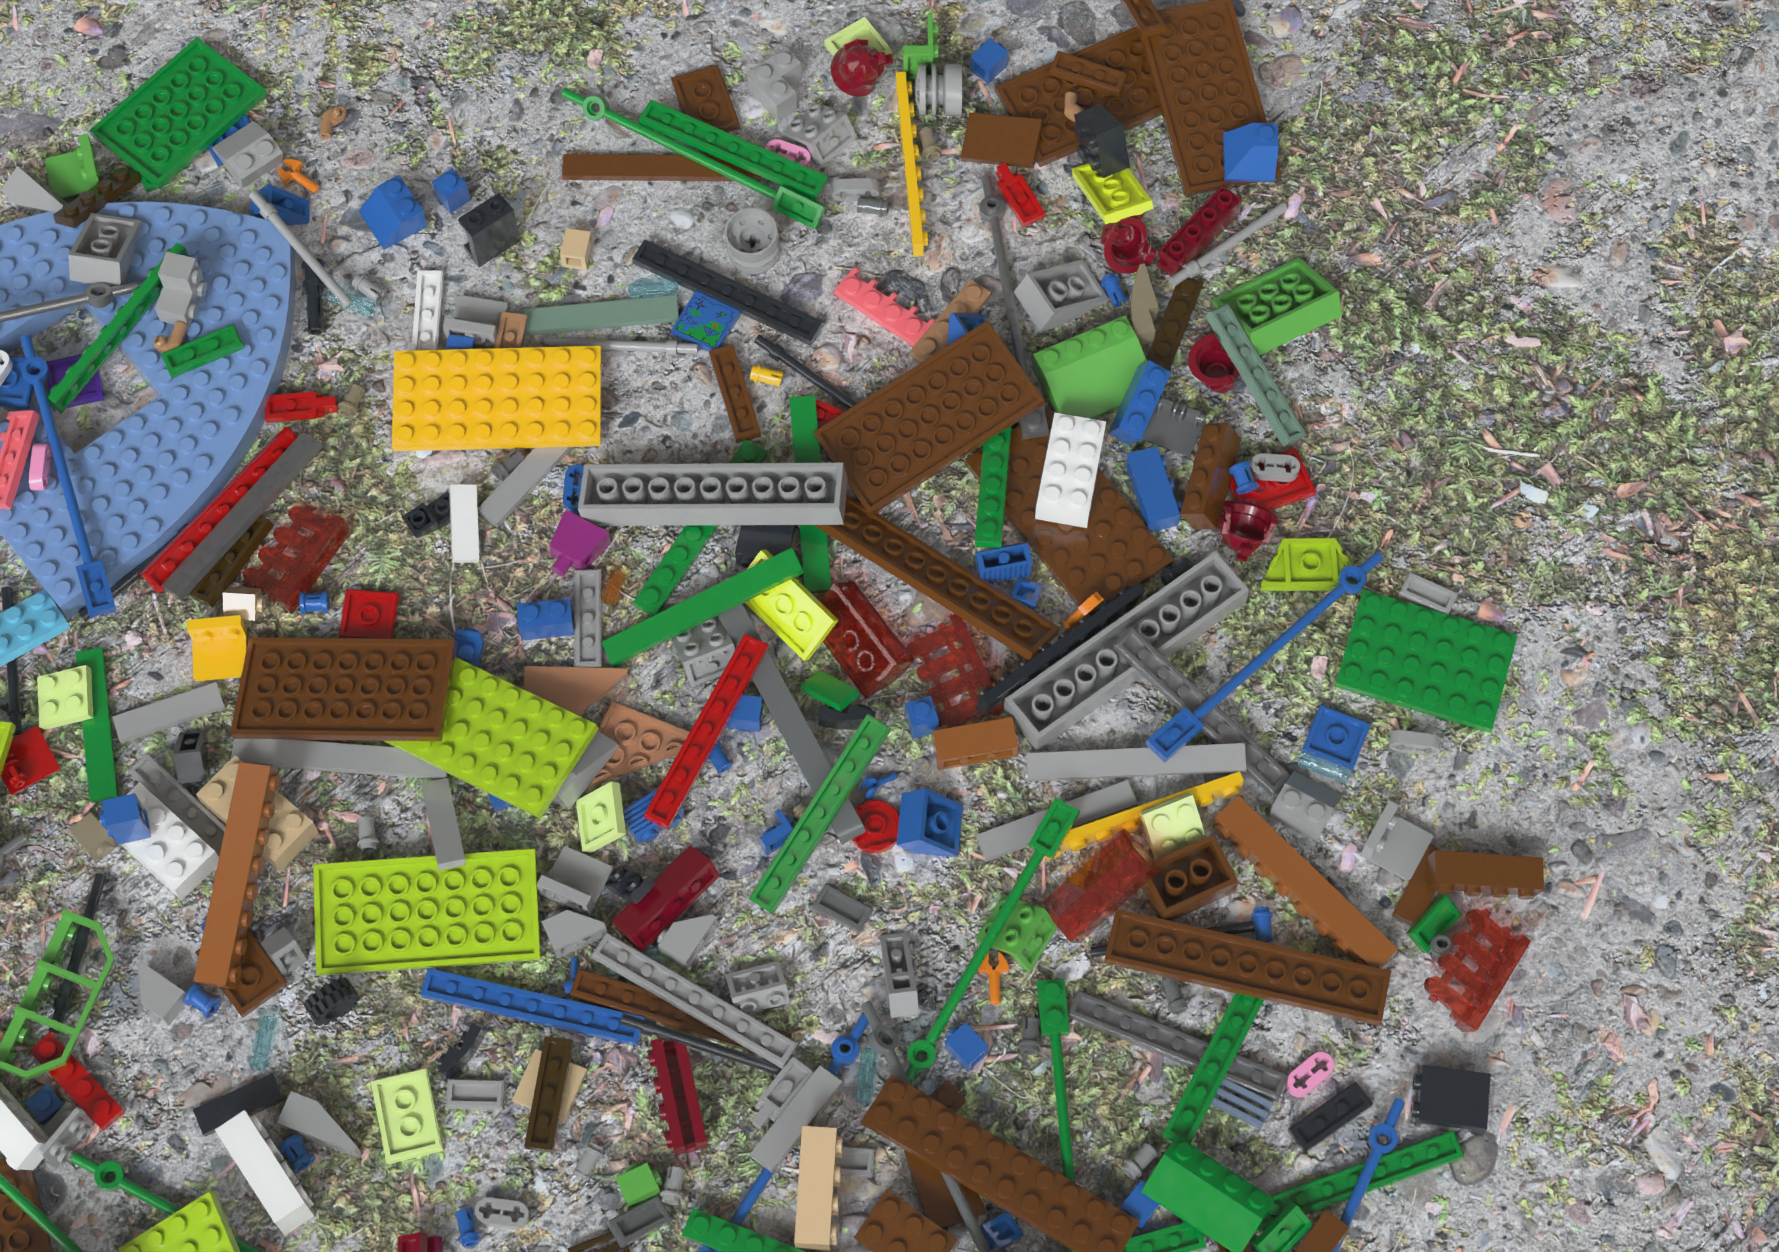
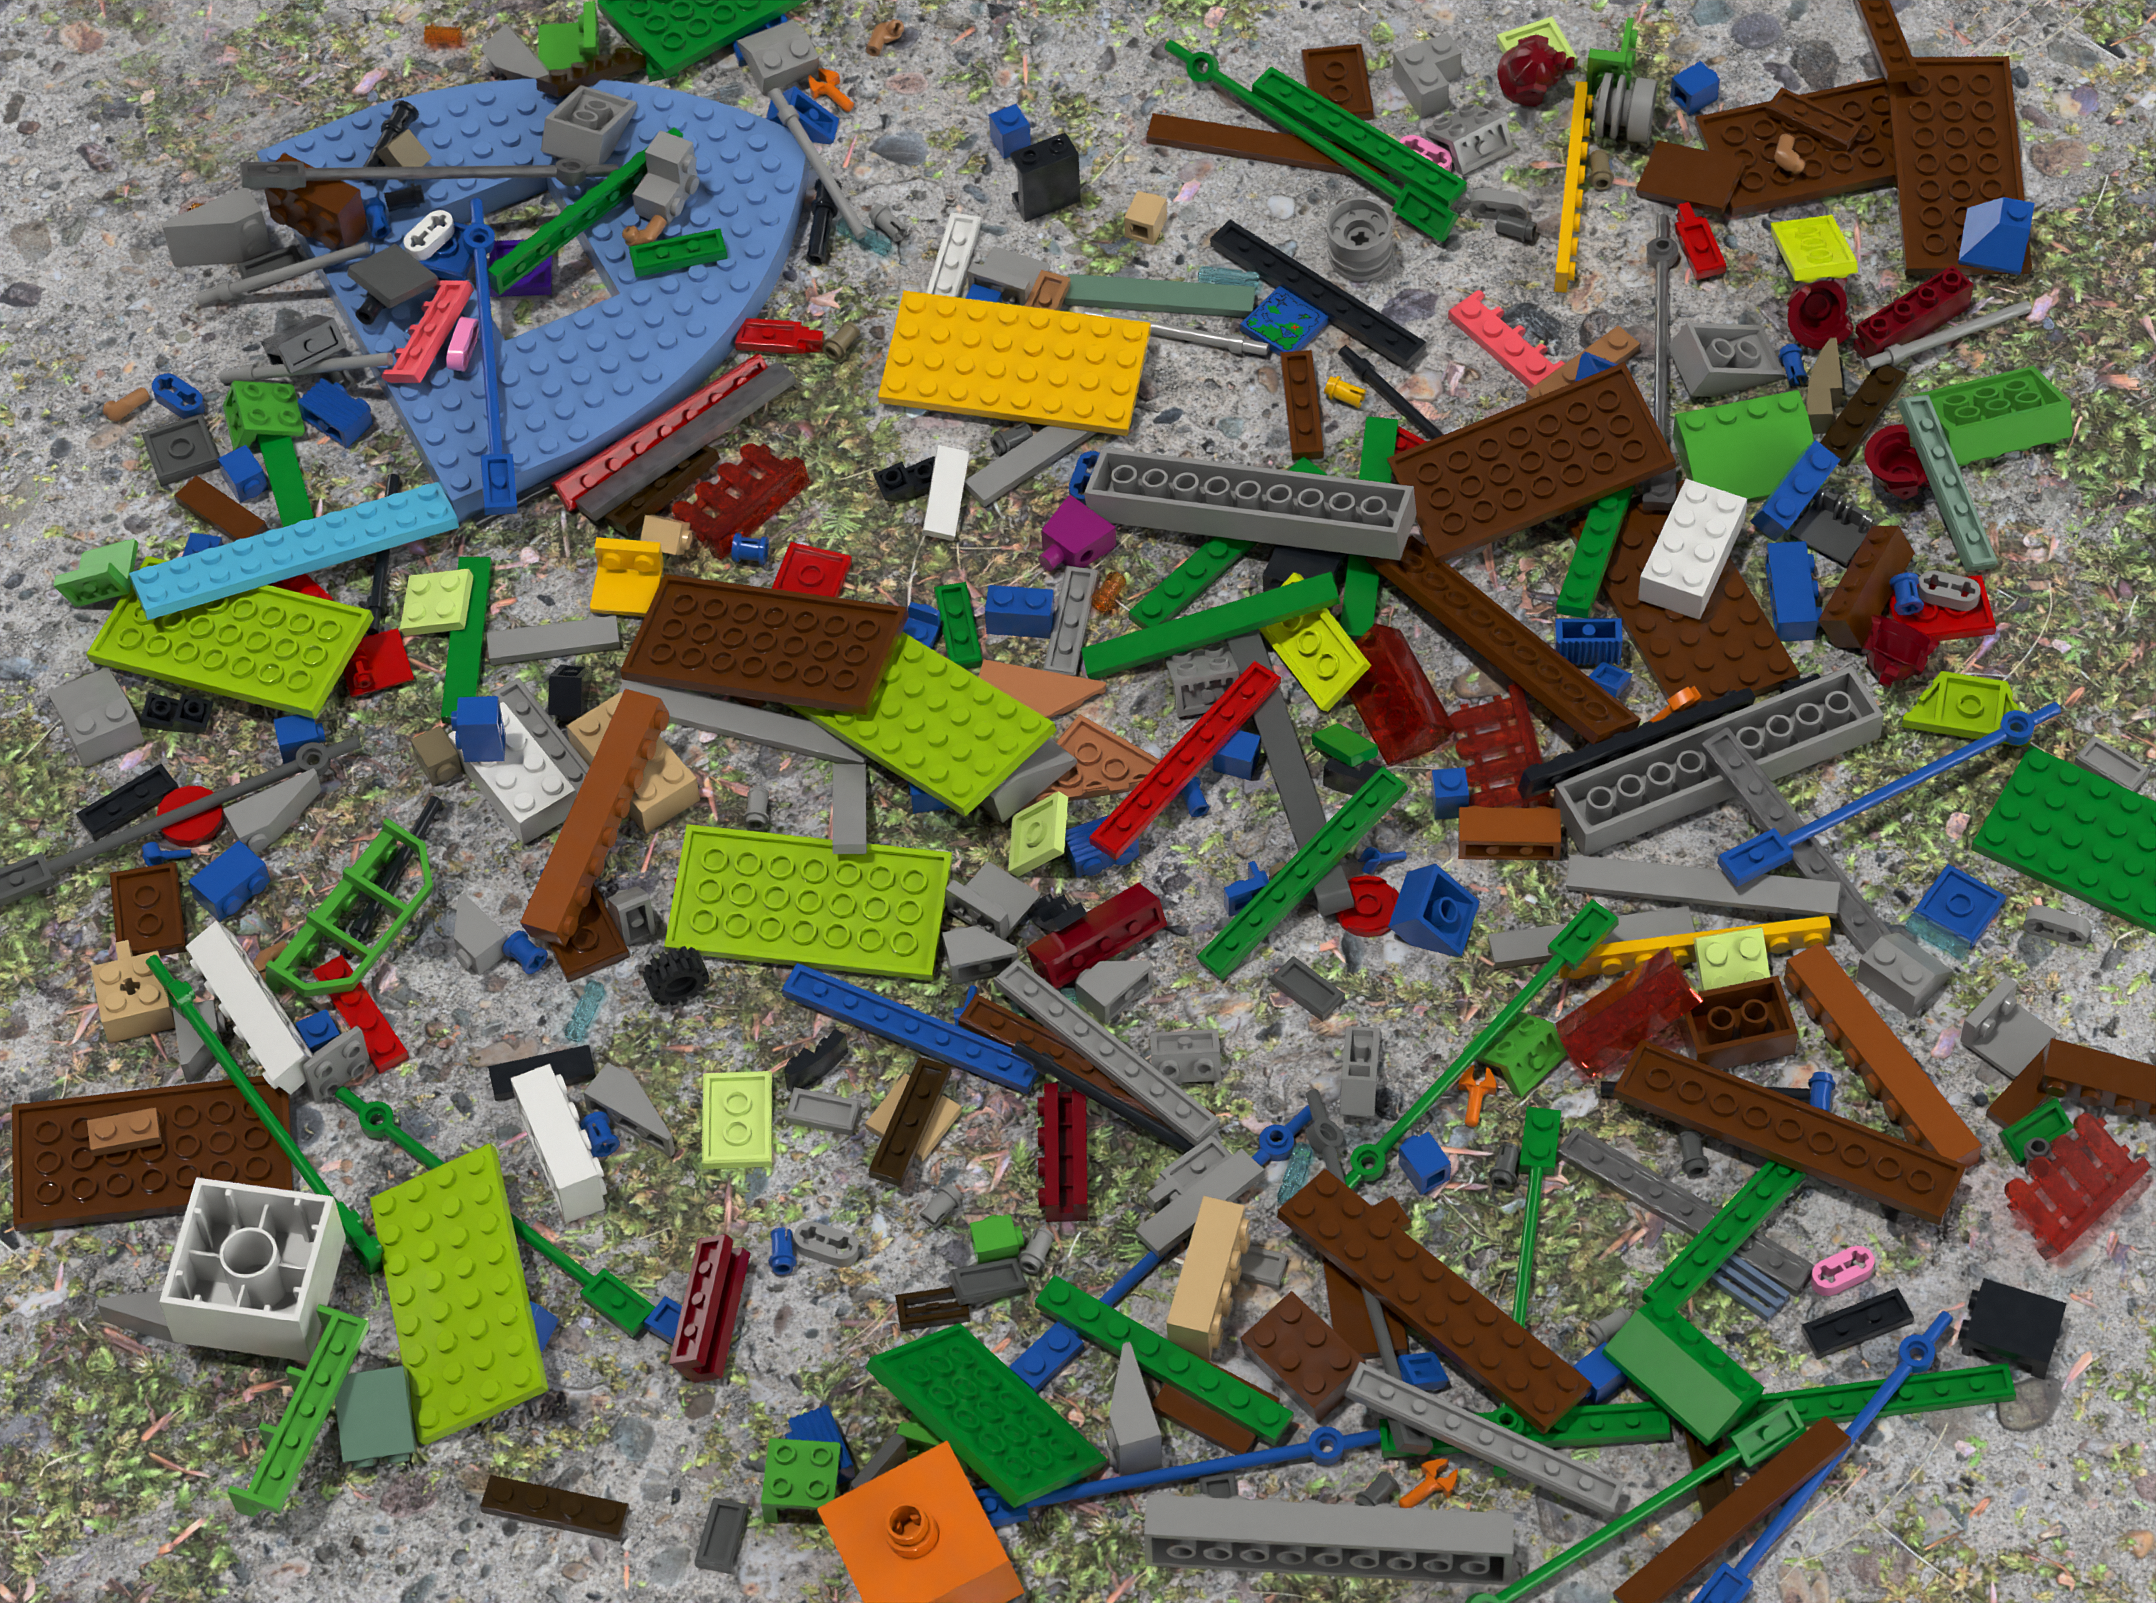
camera: 15 degrees right, 10 degrees down
(392, 213) = (935, 145): blue slope -> none
(497, 639) = (958, 625): none -> green tile
(1101, 141) = (1811, 191): black brick -> none

